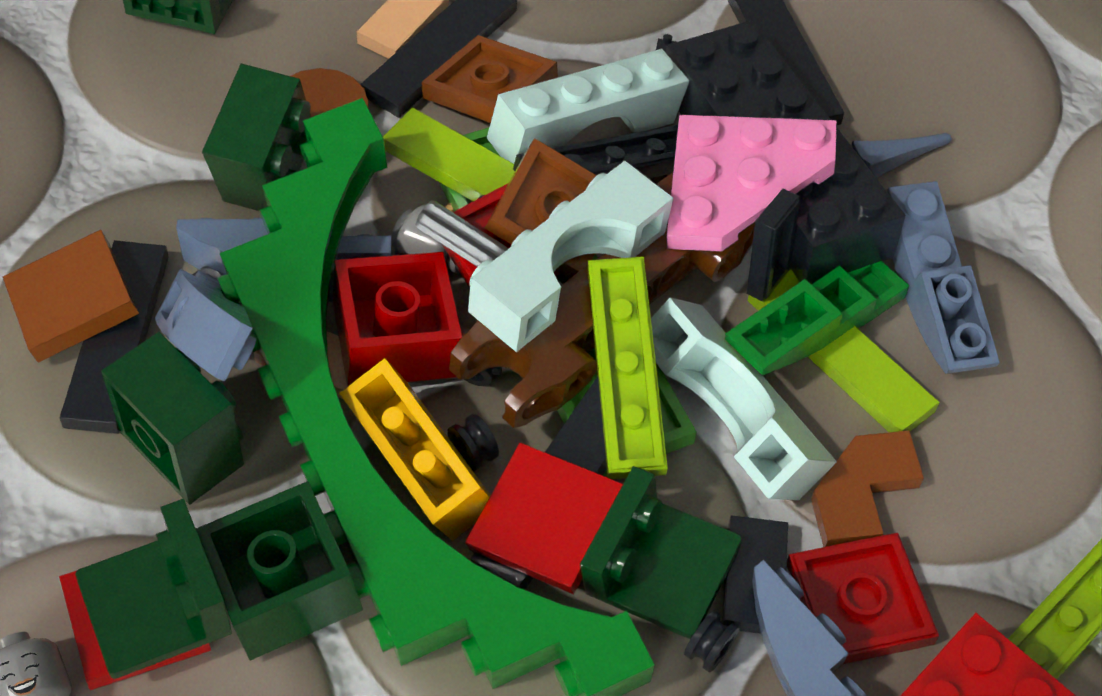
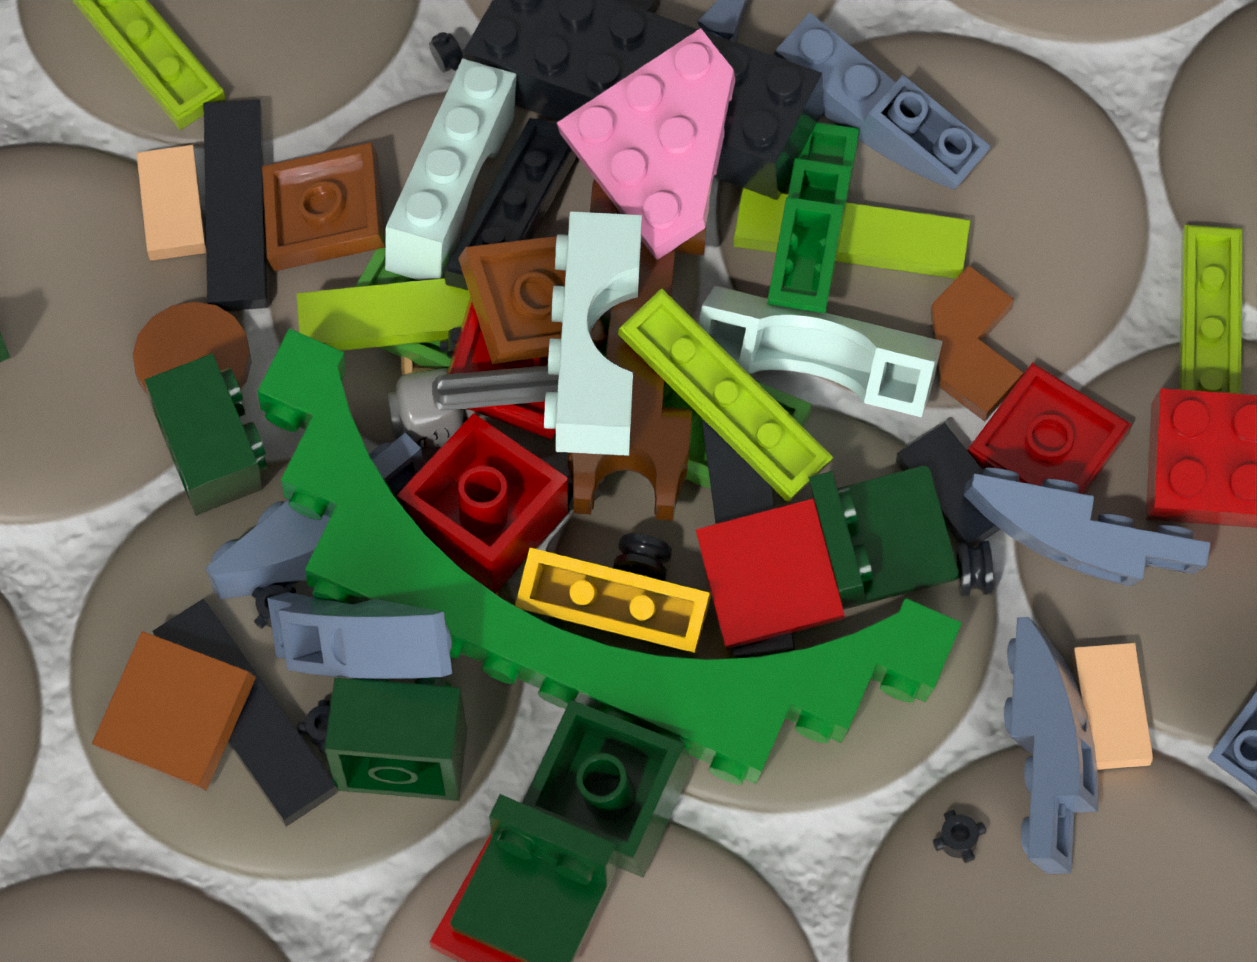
camera: 35 degrees left, 10 degrees up
(773, 244) = (737, 186): black tile -> none

